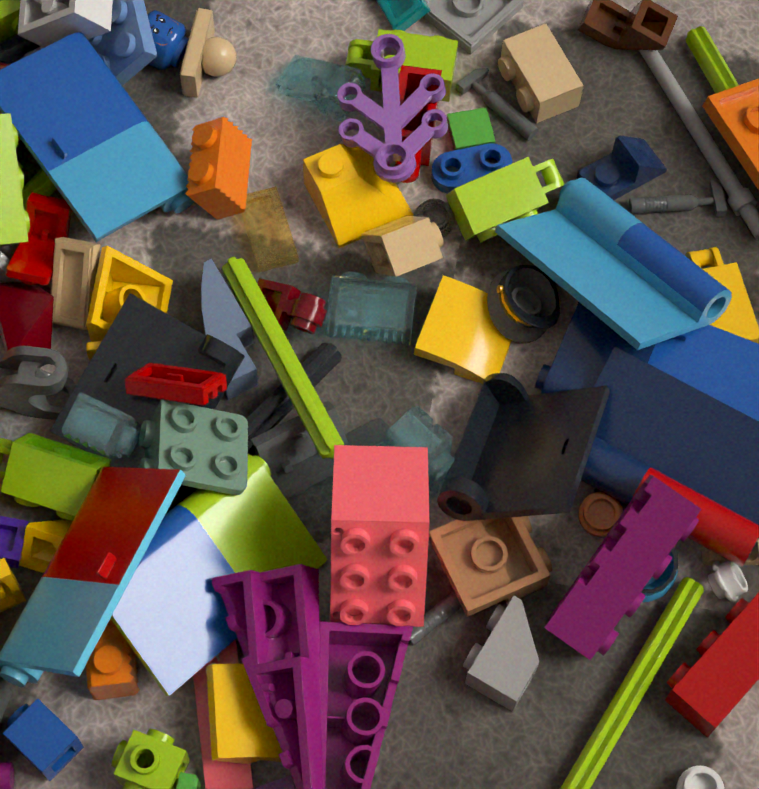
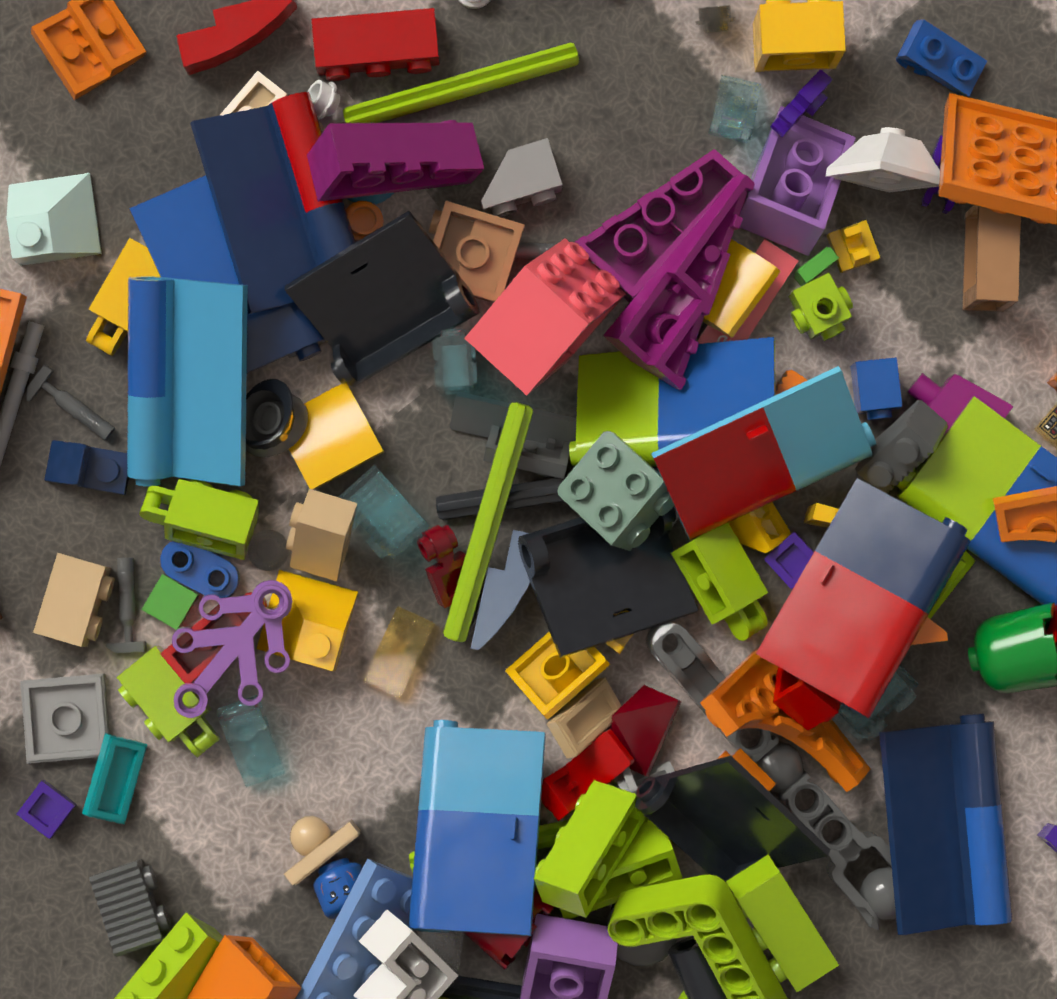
camera: 140 degrees left, 20 degrees up
(101, 427) = (668, 563): clear light blue brick -> none
(176, 383) = (595, 549): red tile -> none
(219, 168) = (397, 725): orange brick -> none

